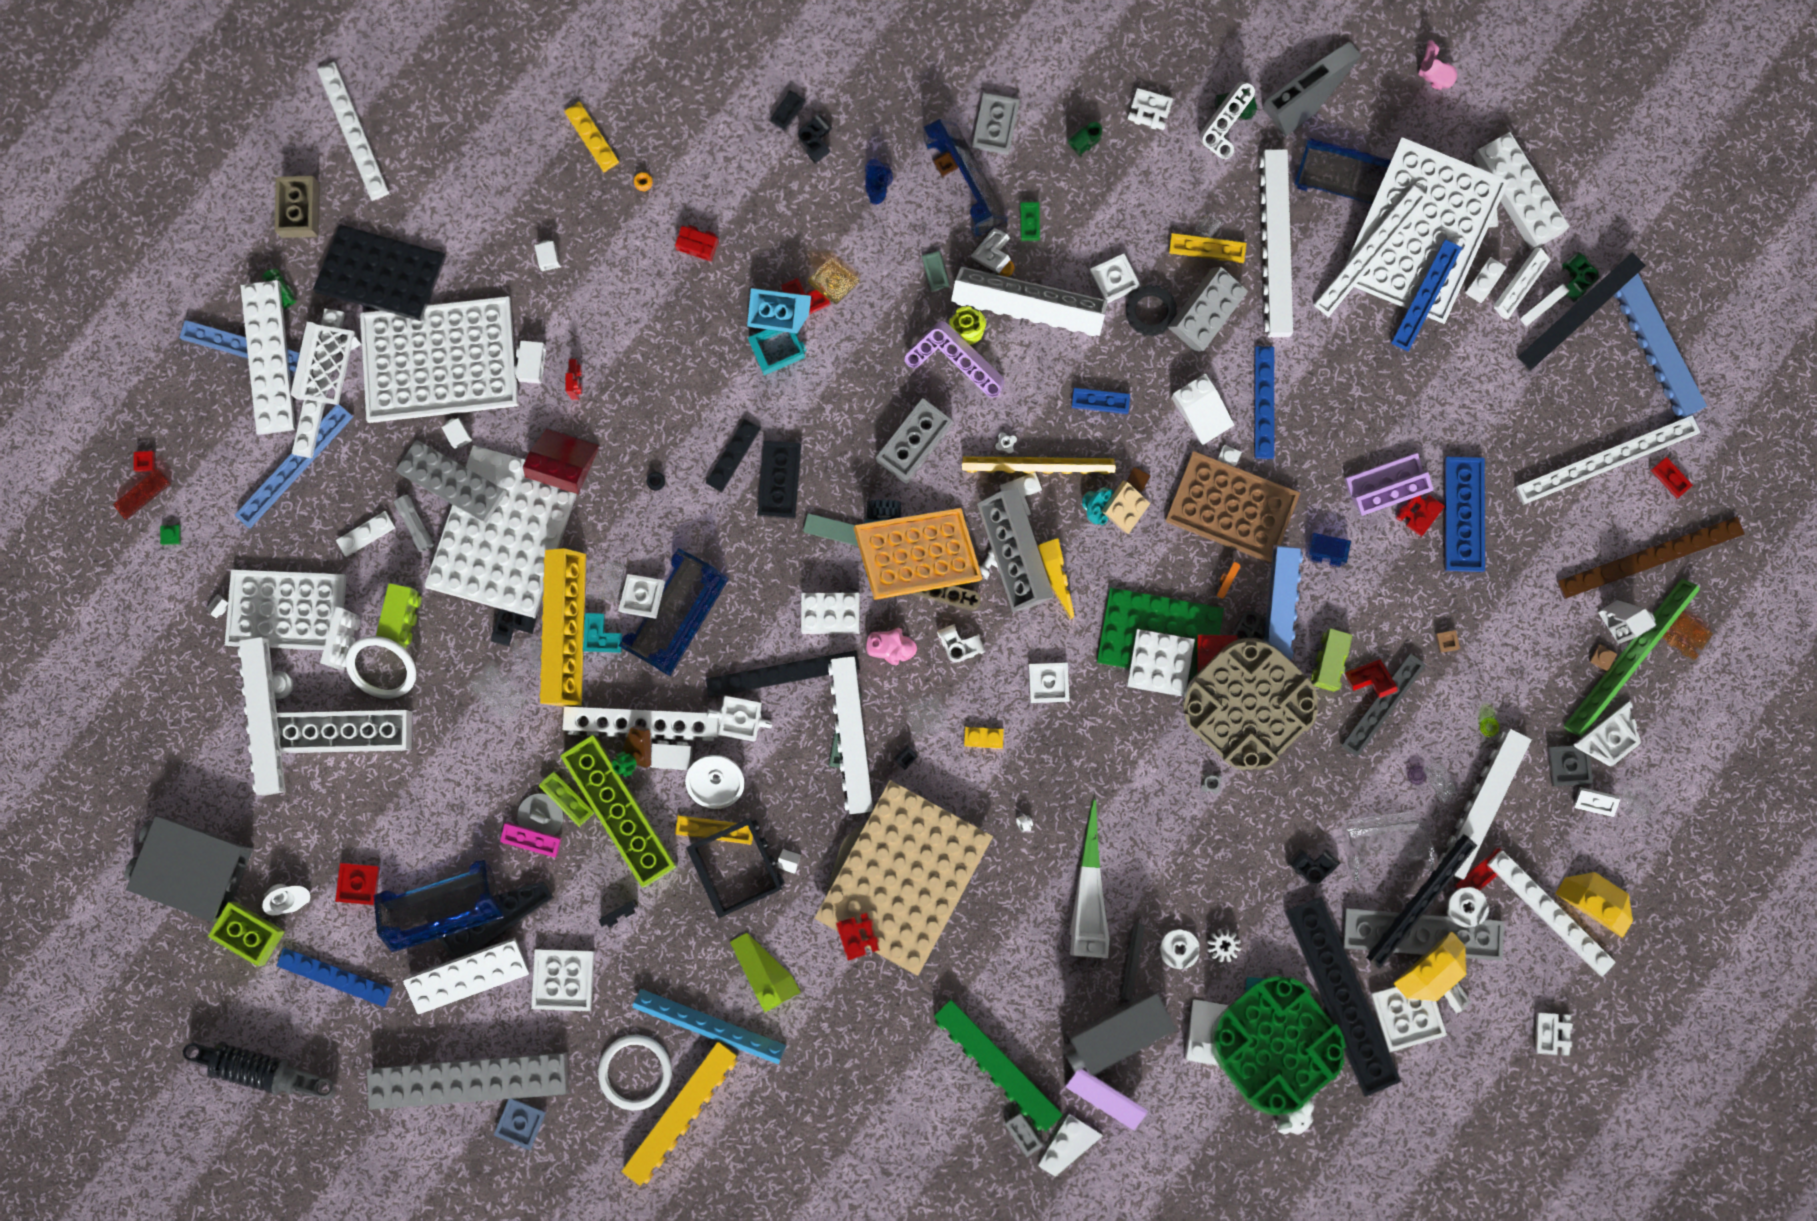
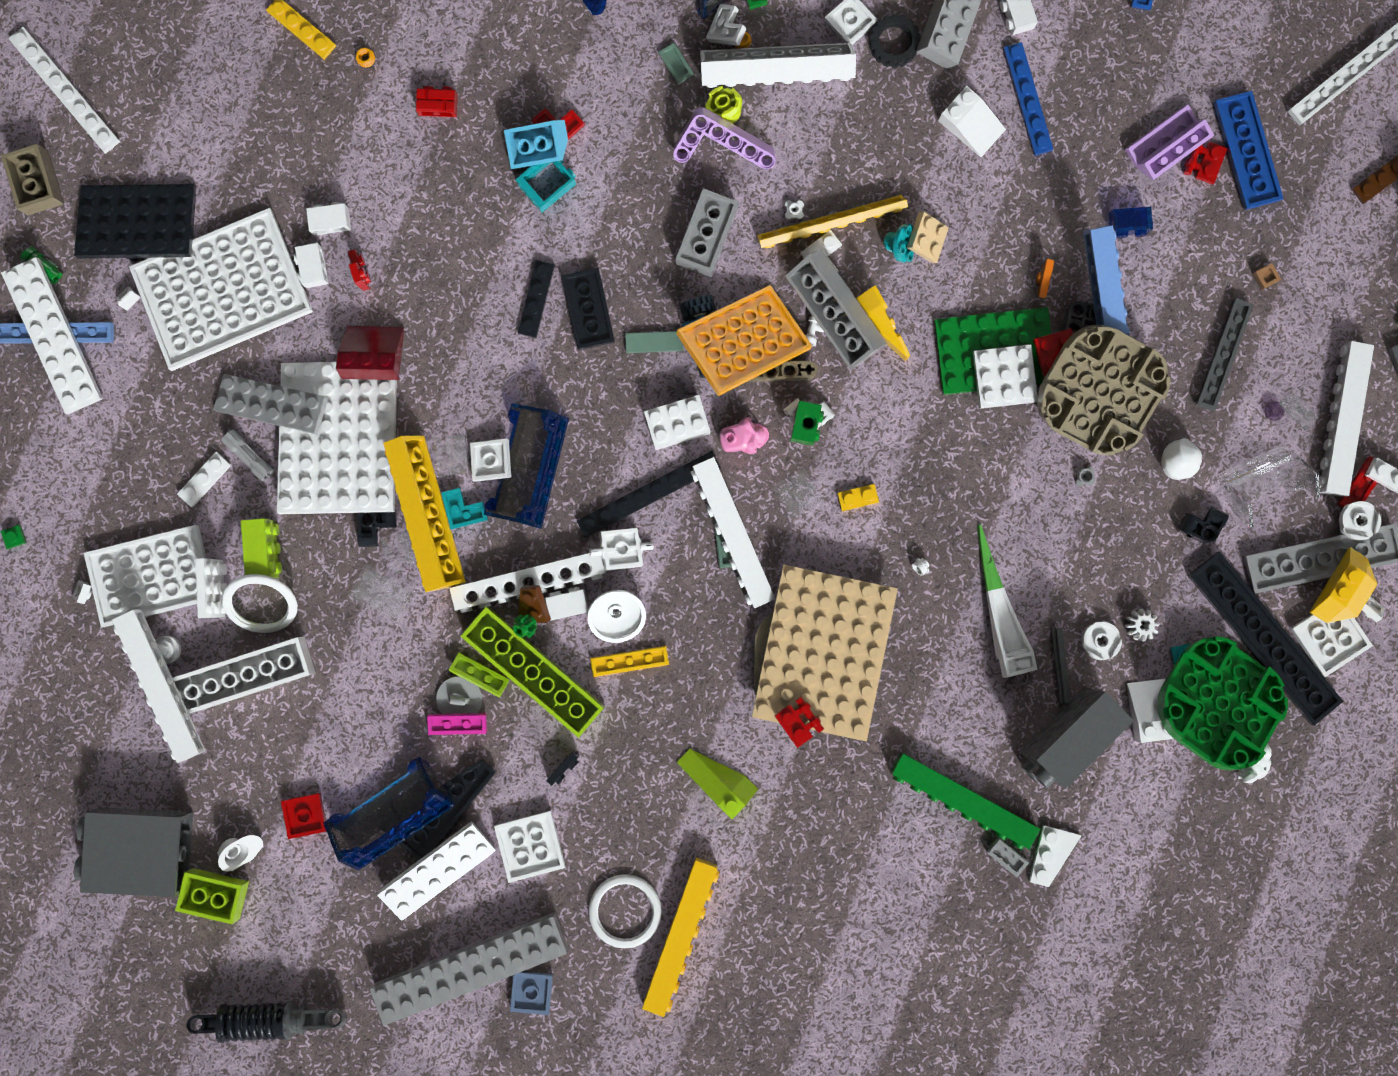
camera: 25 degrees left, 5 degrees up
(291, 469) = (112, 434): medium blue plate -> none
(306, 363) = (90, 323): white fence -> none
(313, 410) = (110, 346): white plate -> none
(334, 977) = (310, 910): blue plate -> none
(456, 433) = (261, 356): white brick -> none
(547, 255) = (294, 156): white brick -> none
(560, 322) = (328, 218): none -> white brick
(651, 477) = (469, 339): black plate -> none
(707, 881) = (635, 709): black window -> none
(709, 1026) = (682, 847): dark azure plate -> none
(788, 861) = (709, 669): white slope -> none
(833, 281) = (581, 100): clear yellow plate -> none
(905, 757) = (789, 538): black slope -> none
(953, 639) = (811, 412): none -> green brick
(1049, 682) = (904, 427): white plate -> none
(1101, 401) = (872, 142): blue plate -> none
(1106, 1098) = (1078, 802): lavender slope -> none
(1138, 479) = (931, 207): reddish brown tile -> none
(1229, 456) = (1009, 161): white plate -> none
(1232, 507) = (1028, 208): medium nougat plate -> none
(1309, 794) = (1181, 459): none -> white piece
(1331, 660) = (1164, 325): lime wedge -> none
(1372, 674) = (1208, 327): red plate -> none
(1421, 901) = (1319, 521): black plate -> none
(1495, 727) = (1332, 341): clear neon green plate -> none

